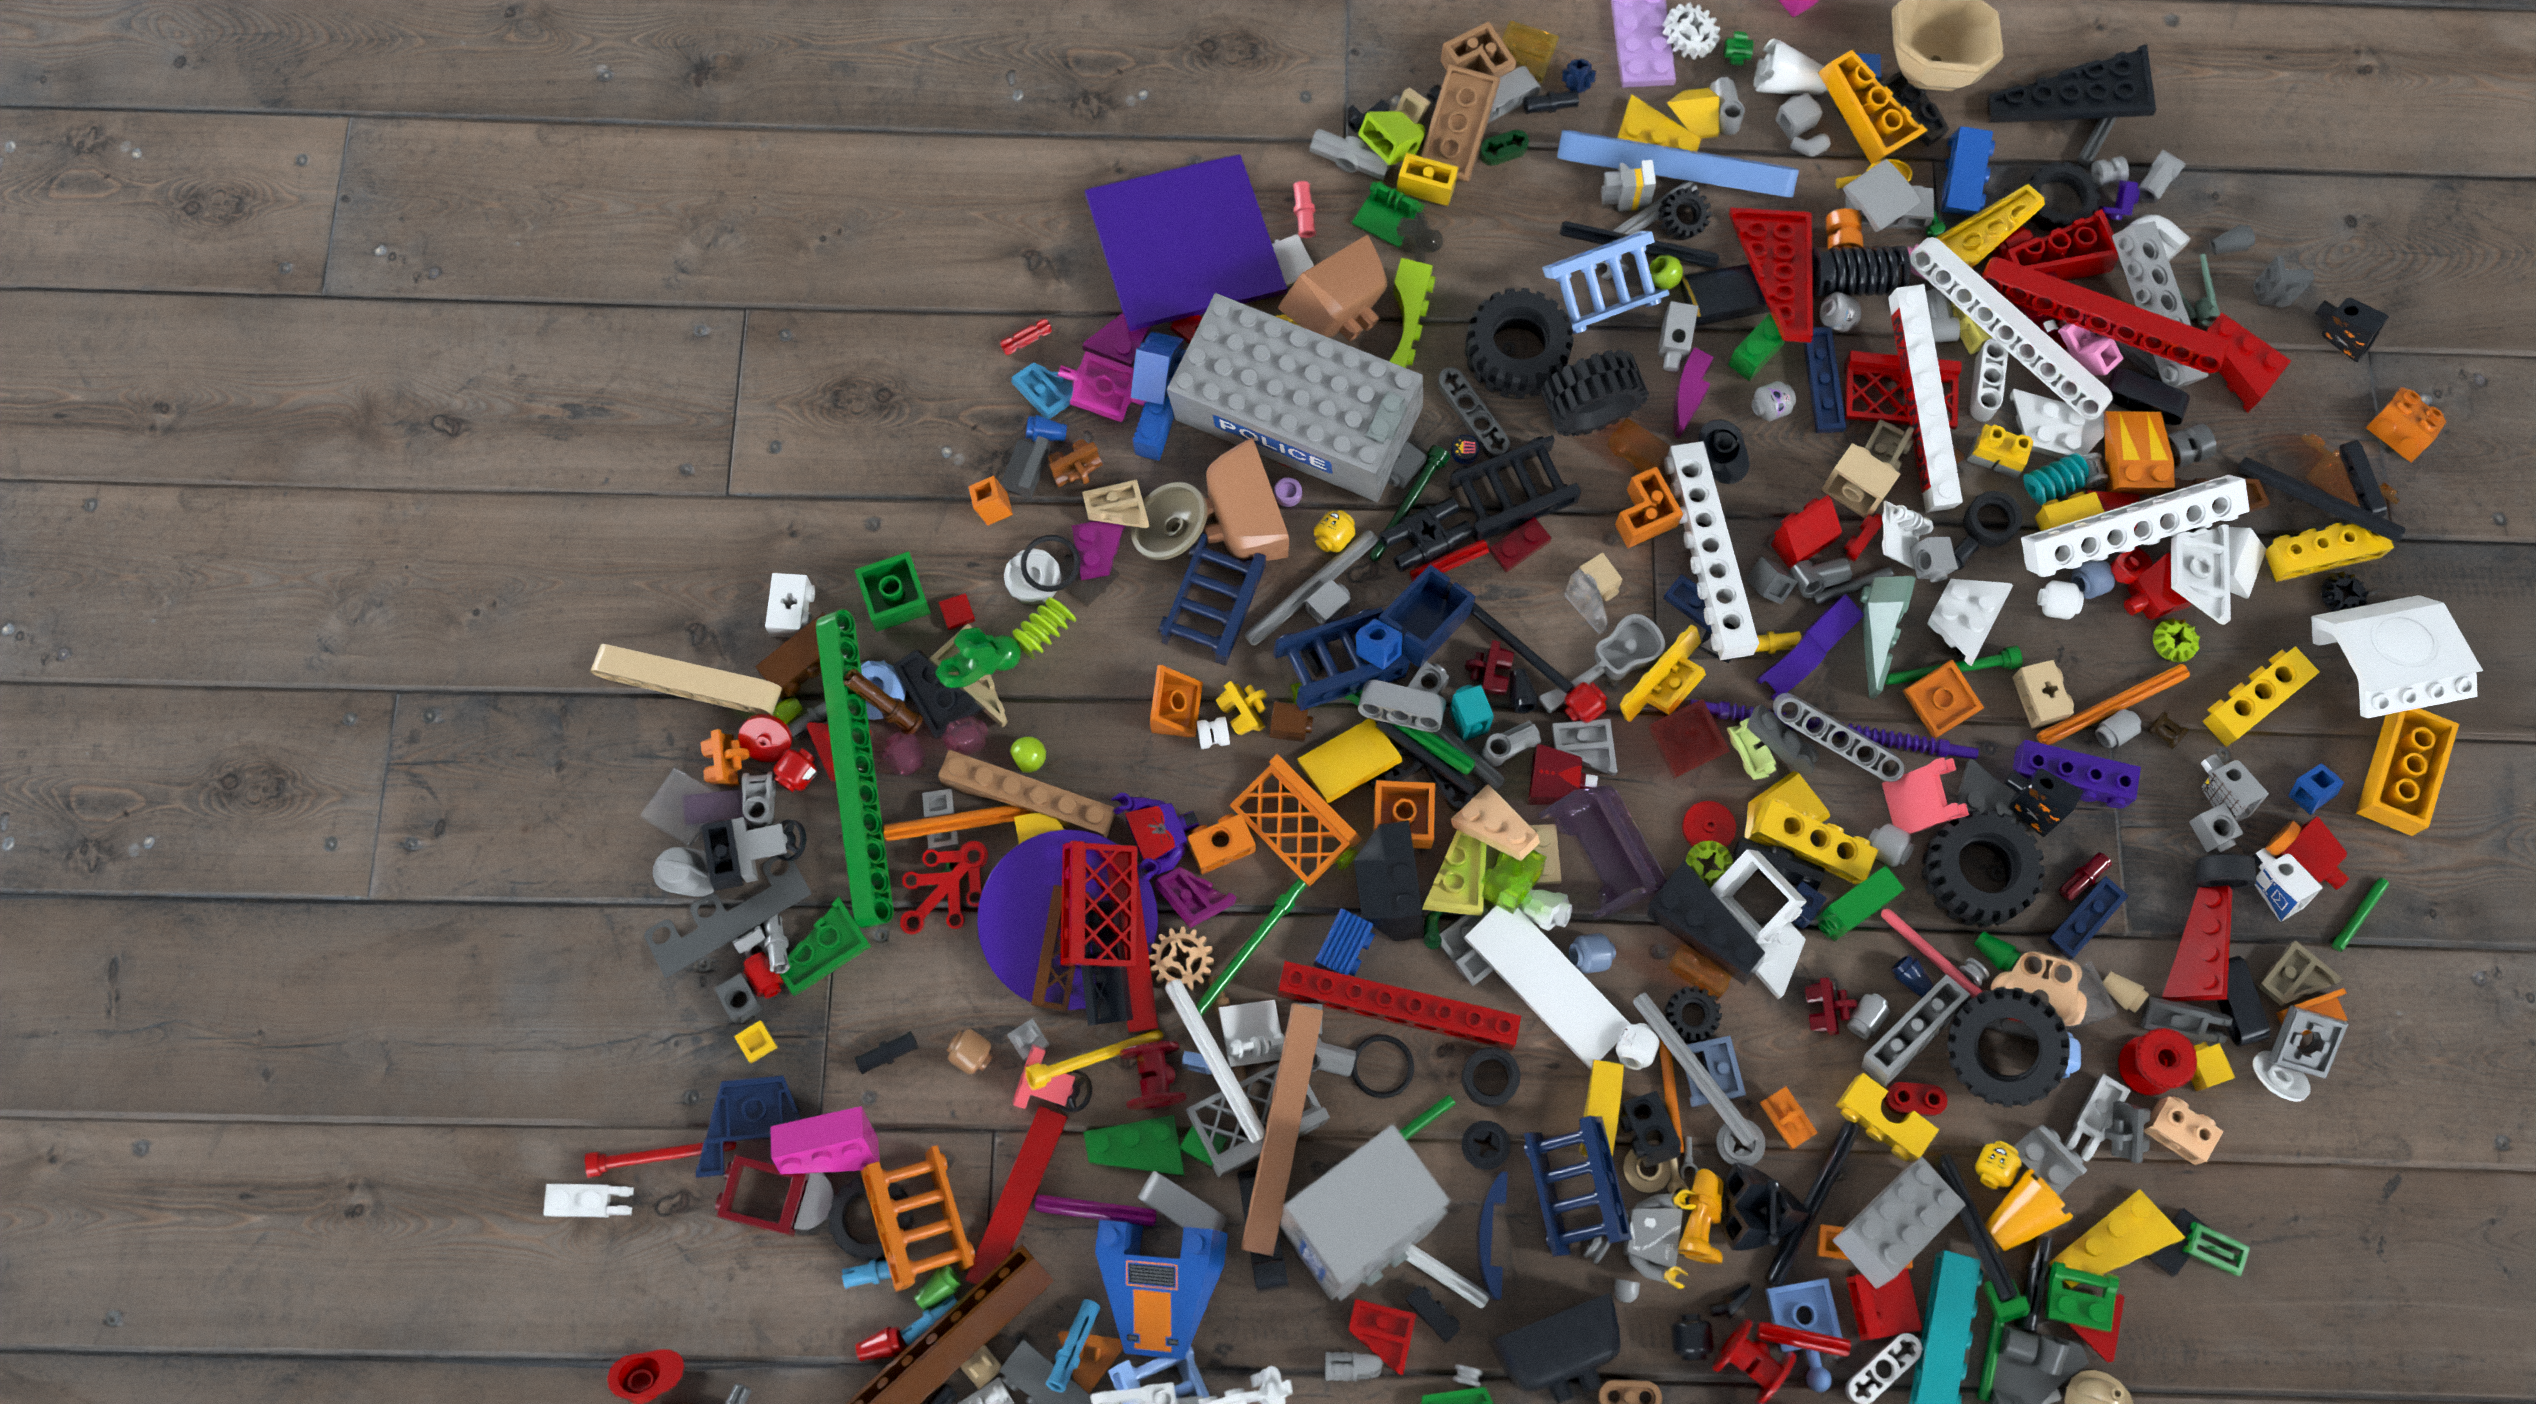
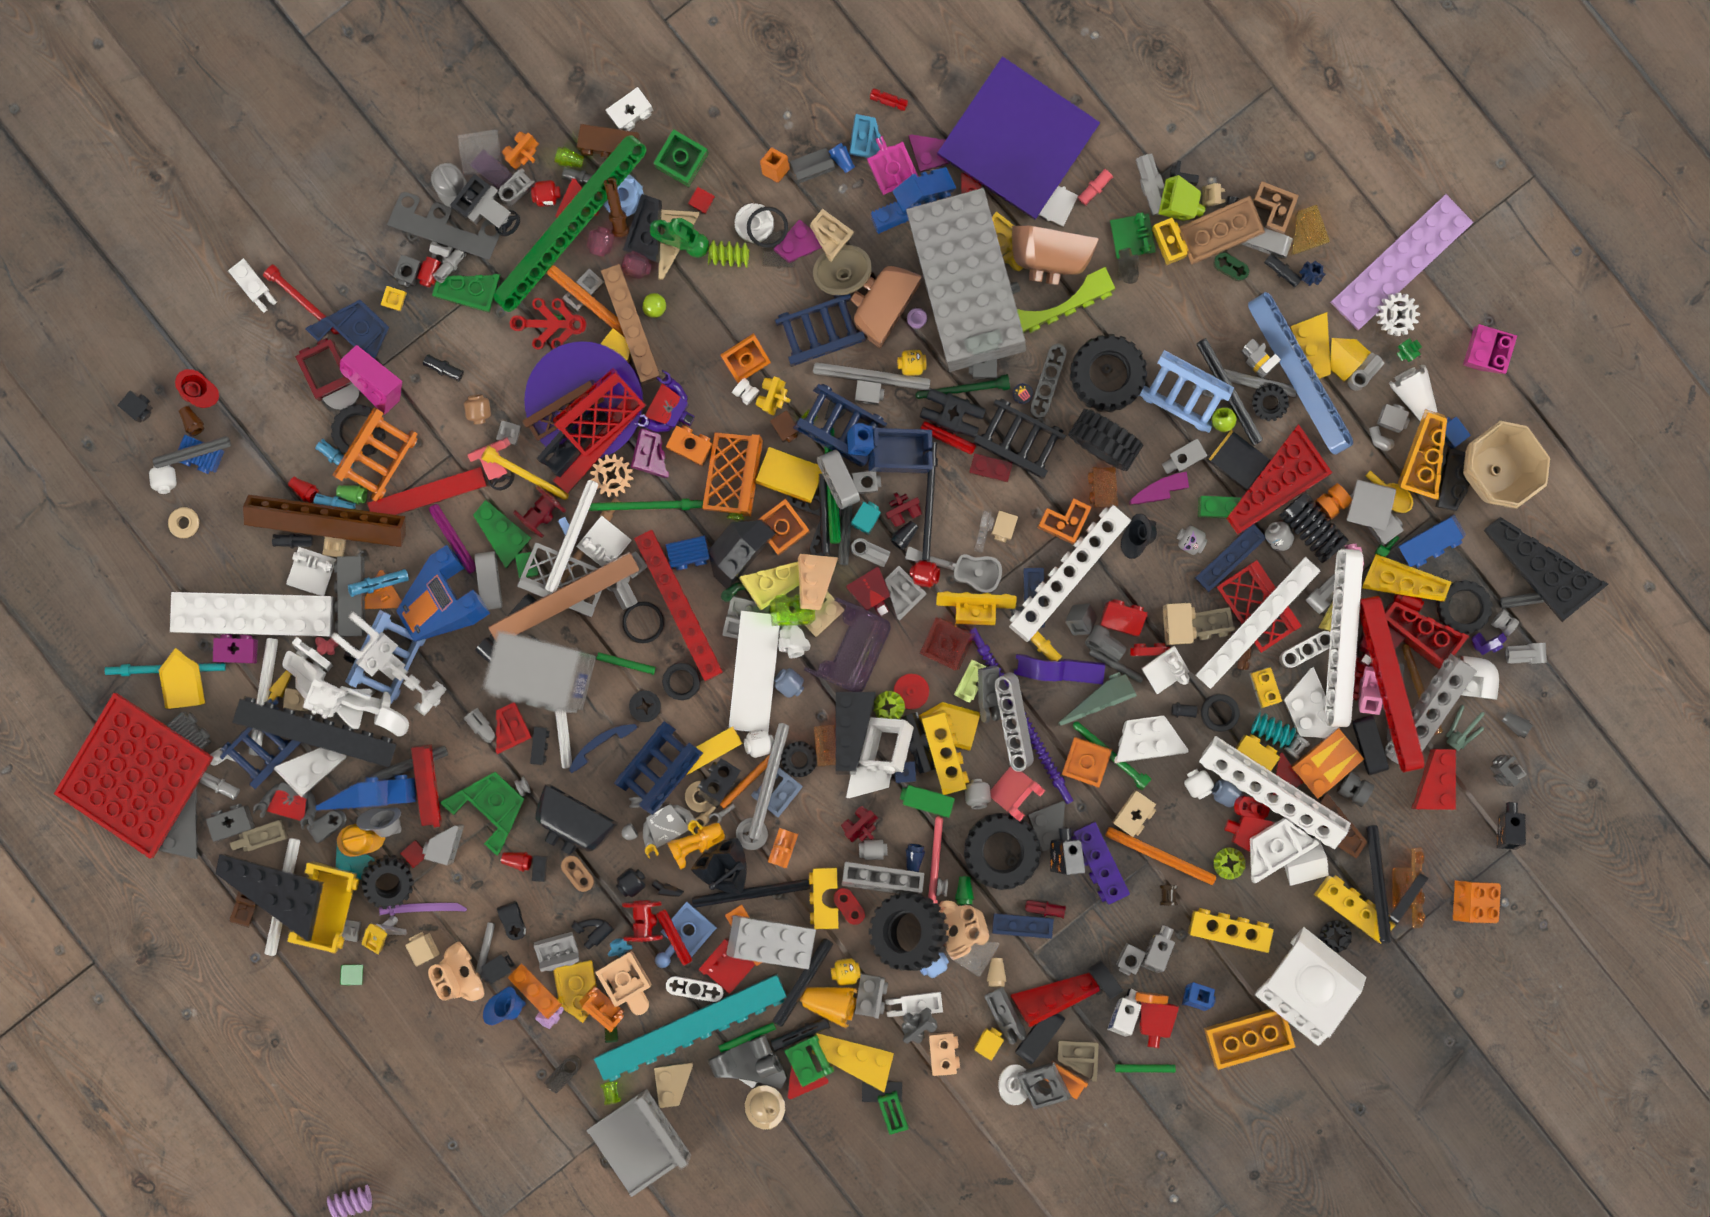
camera: 55 degrees right, 15 degrees up
(686, 680) = (543, 94): tan beam -> none
(765, 737) = (548, 163): red piece -> none
(1076, 464) = (835, 193): dark orange hips -> none
(1933, 558) = (1166, 698): light grey brick -> none
(2005, 1310) = (774, 1030): green panel -> none
(2118, 729) = (1147, 868): light grey brick -> none
(2157, 1062) = (969, 1026): red hose -> none

